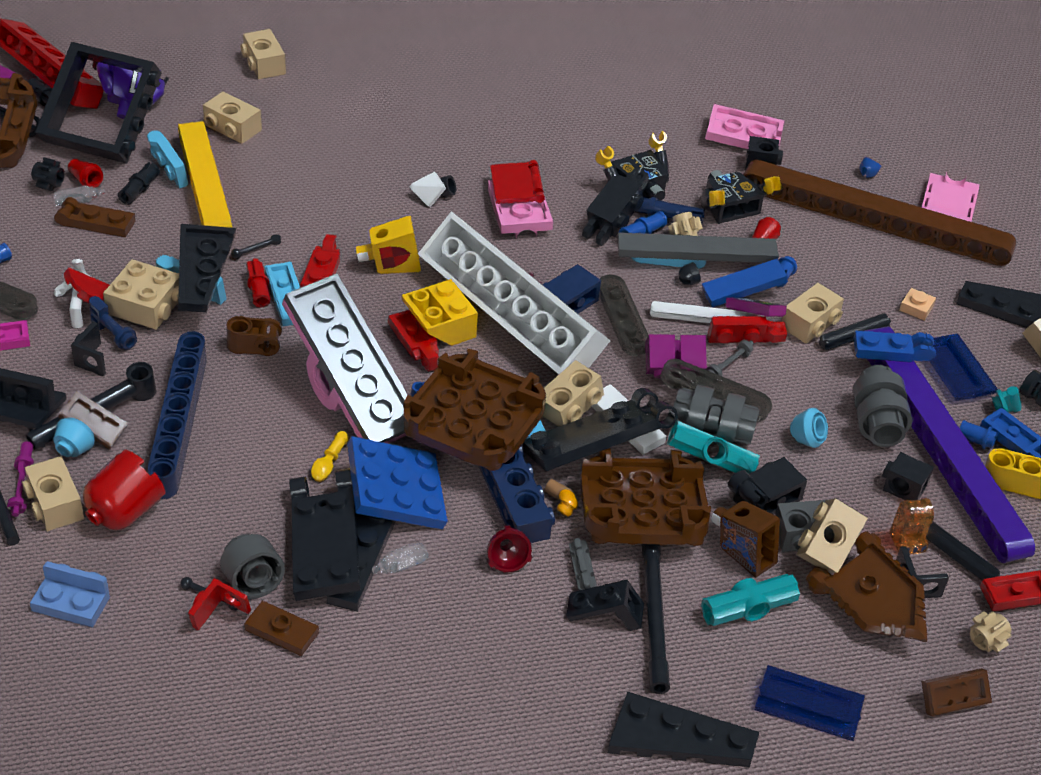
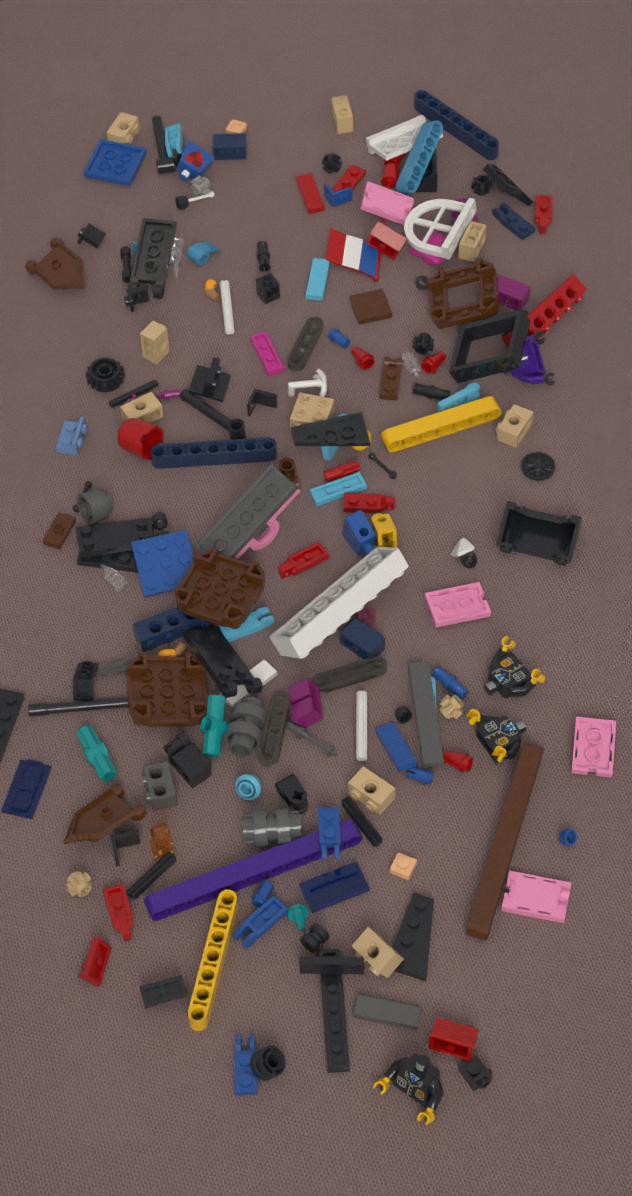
camera: 90 degrees right, 10 degrees up
(45, 237) = (363, 359): none -> red cone
(72, 437) = (184, 409): medium azure cone -> none
(85, 285) = (308, 384): red tile -> none
(103, 423) = (198, 415): plate -> none
(124, 337) = (276, 415): dark blue hinge -> none
(208, 600) = (68, 493): red bracket -> none
(263, 54) = (600, 430): tan brick -> none
(303, 112) = (538, 466): none -> black wheel
(323, 466) = (194, 533): yellow piece -> none
(389, 270) = (359, 533): none -> blue torso
(423, 117) = (538, 533): none -> black windscreen
(443, 312) = (322, 567): yellow slope -> none
(512, 555) = (121, 625): dark red piece -> none
(517, 182) = (476, 597): red piece -> none
(572, 394) = (255, 645): tan brick -> none
(615, 205) = (461, 659): black hinge -> none
(653, 205) = (475, 689): dark blue pin -> none
(749, 536) = (141, 747): reddish brown torso -> none
(750, 328) = (344, 751): red hinge -> none
(756, 307) = (365, 751): magenta tile -> none
(764, 150) = (563, 752): black brick -> none
(818, 385) = (293, 793): none -> black piece
(846, 527) = (138, 786): tan brick -> none
(906, 477) = (210, 845): black brick -> none
(956, 692) = (32, 863): reddish brown plate -> none

